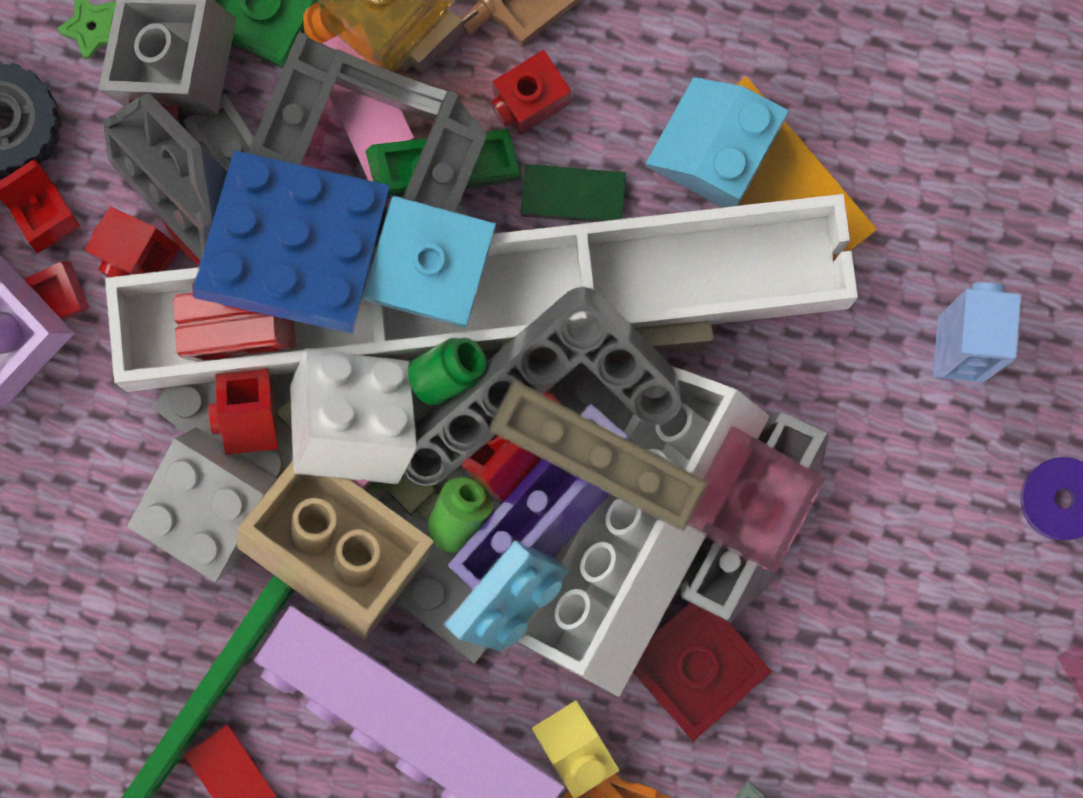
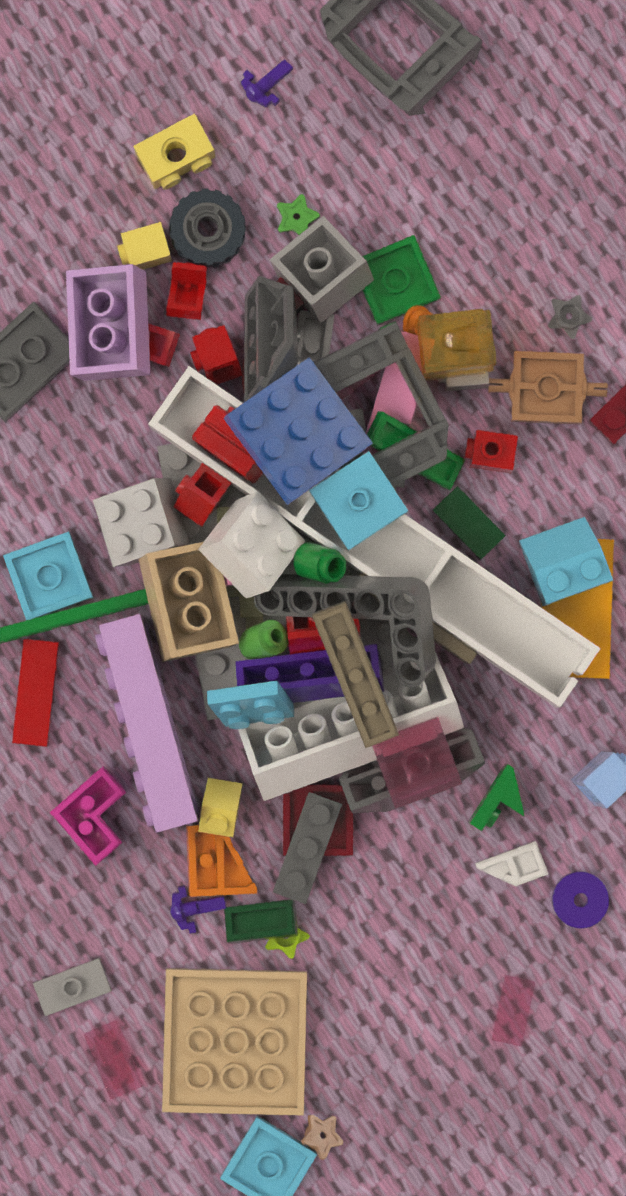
camera: 40 degrees right, 5 degrees up
(150, 659) = (48, 576): none -> medium azure plate
(714, 708) = (307, 848): none -> dark grey plate
(871, 452) = (502, 790): none -> green slope
(959, 523) = (516, 865): none -> white tile

